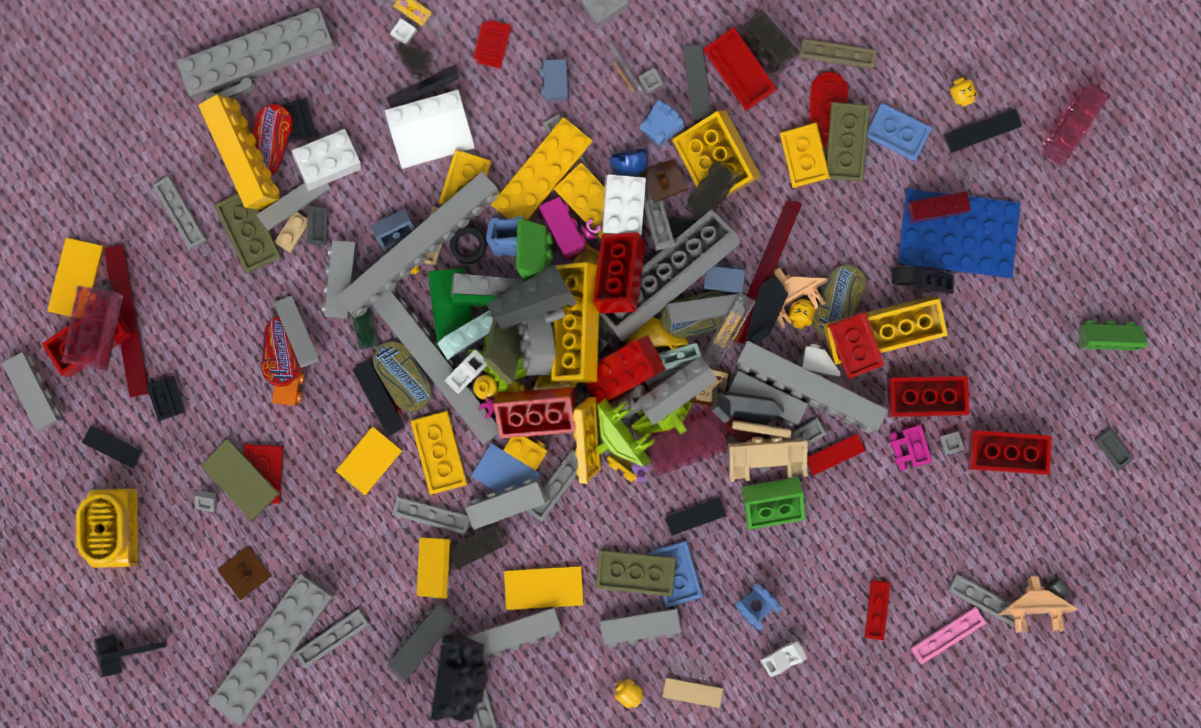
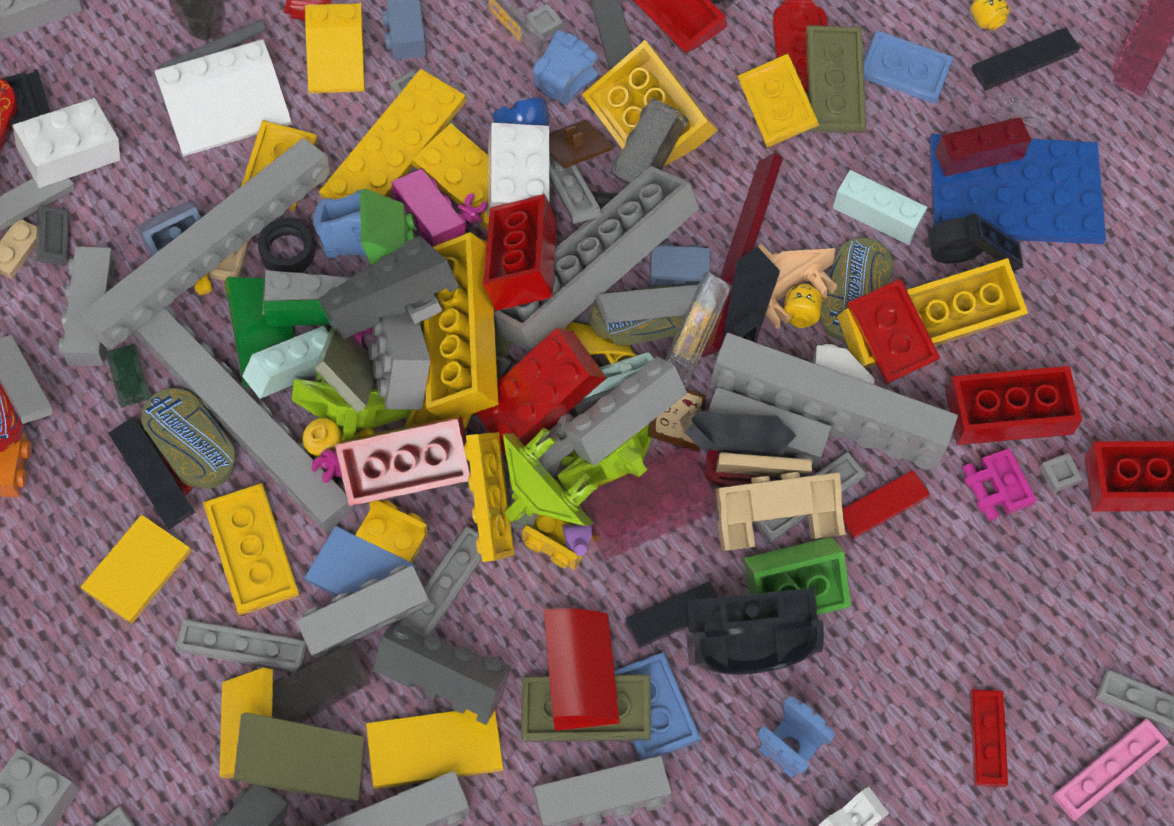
camera: 15 degrees left, 20 degrees down
(463, 594) = (298, 758): none -> olive tile
(466, 371) = (293, 410): white brick -> none
(506, 94) = (335, 48): none -> yellow slope
(551, 546) = (443, 670): none -> dark grey wedge
(634, 550) = (580, 668): none -> red slope
(740, 537) = (753, 631): none -> black piece
(862, 244) = (879, 207): none -> light aqua brick

